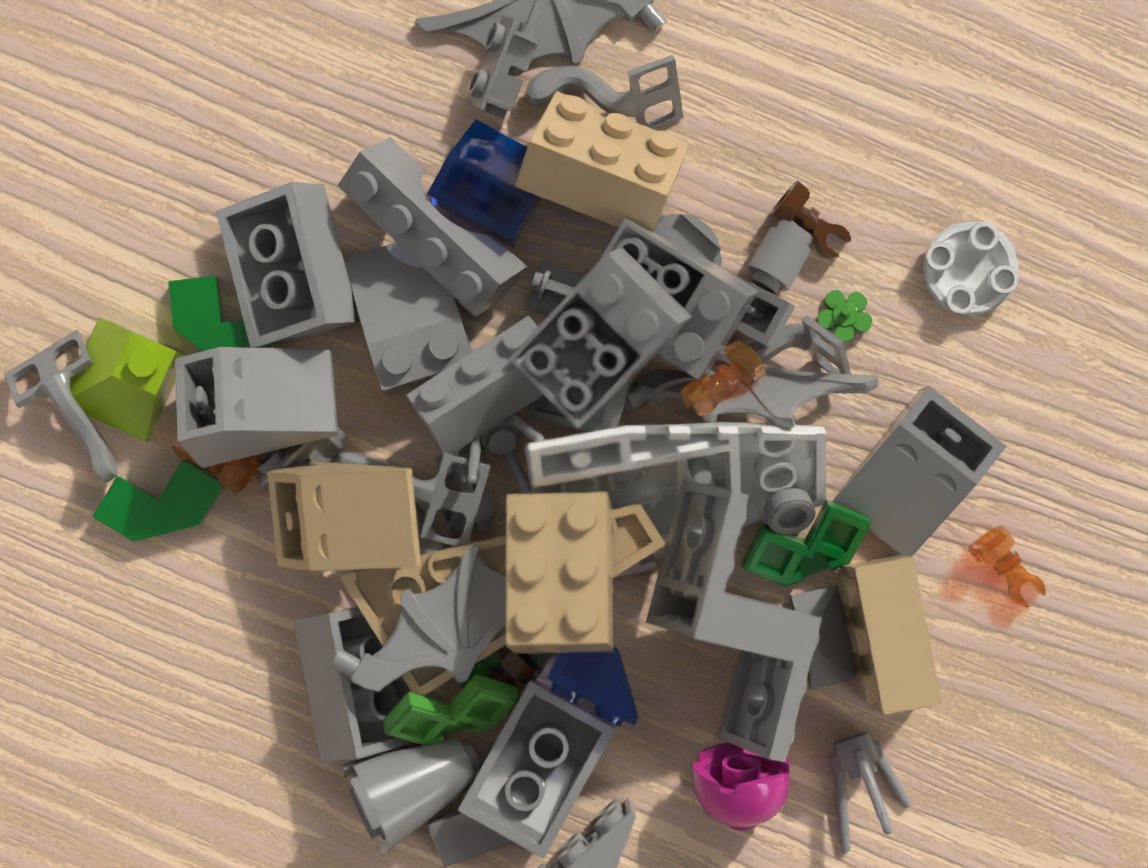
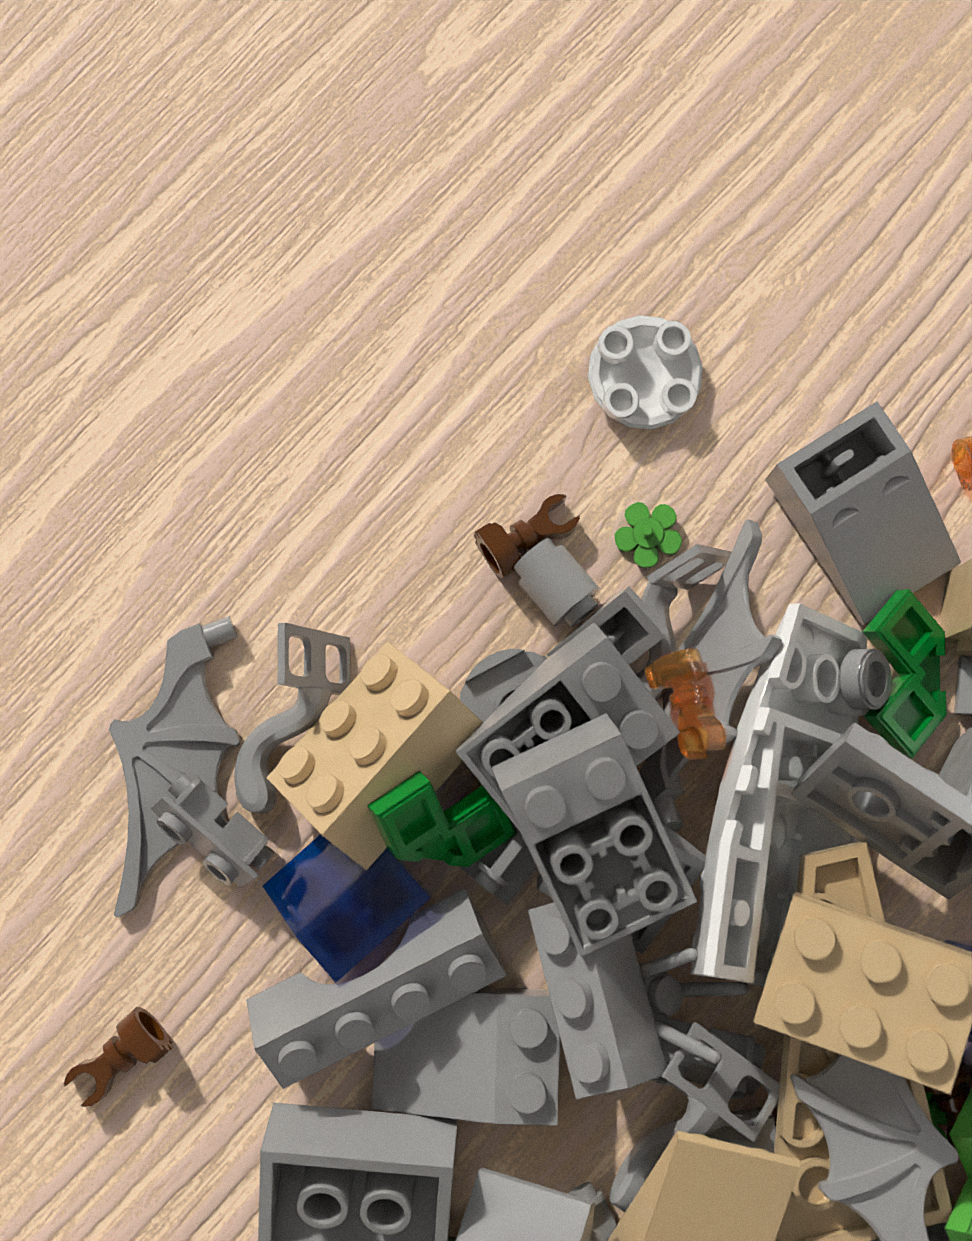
camera: 70 degrees left, 5 degrees down
(334, 70) = (139, 1039): none -> reddish brown piece
(558, 213) = (419, 828): none -> green tile

